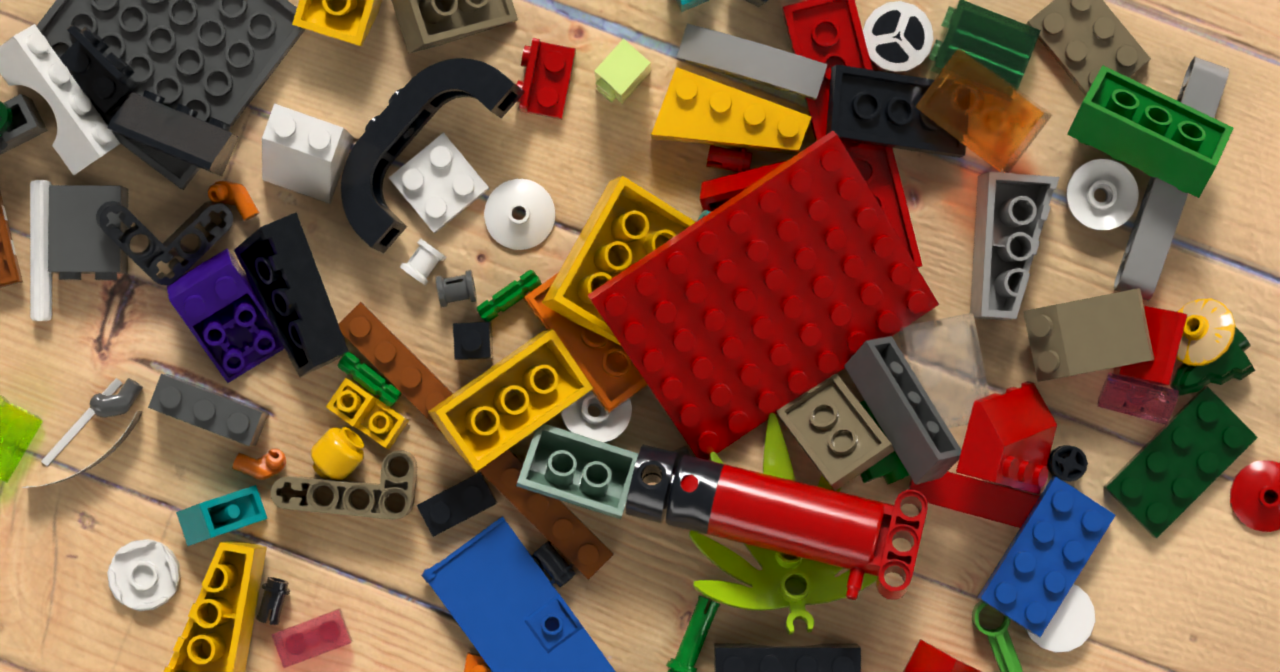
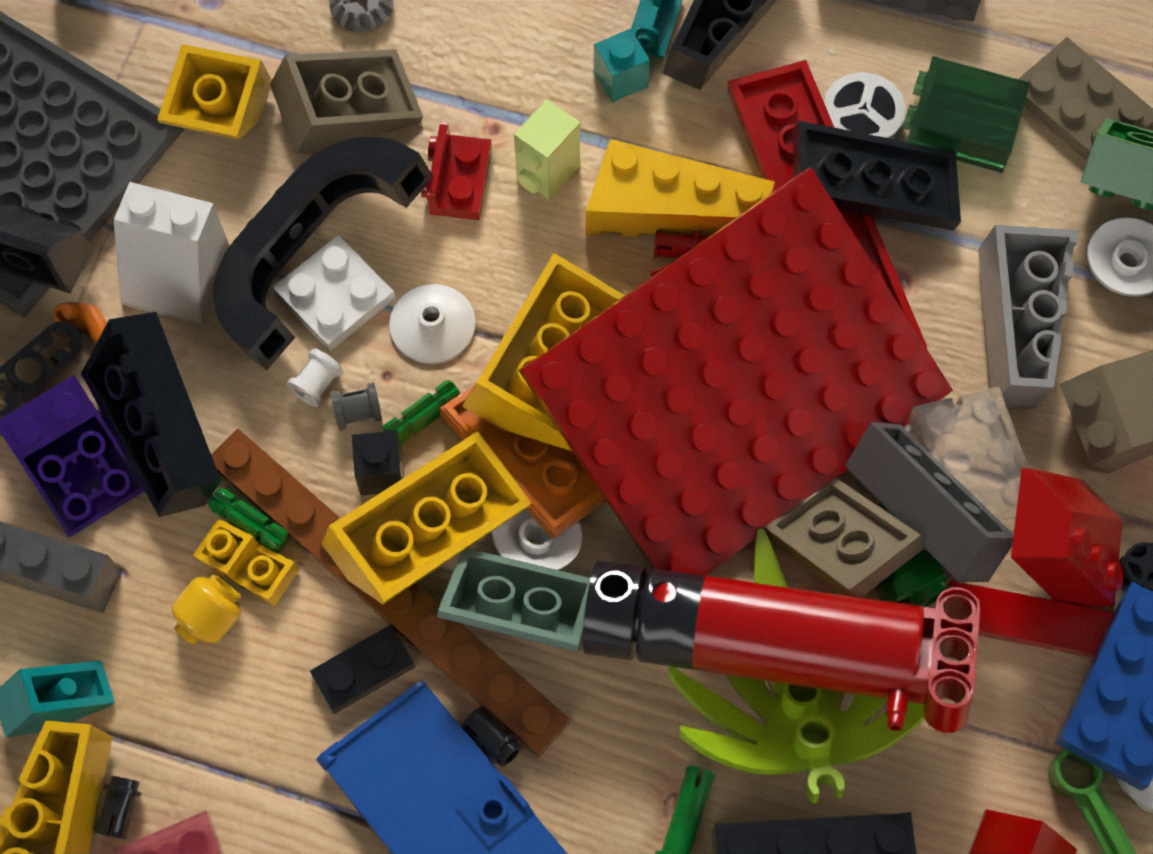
camera: 10 degrees left, 20 degrees down
(263, 467) = (110, 637): orange arm -> none
(344, 490) = (217, 653): dark tan beam -> none
(751, 61) = (702, 137): light grey slope -> none
(983, 111) = (980, 162): clear orange slope -> none

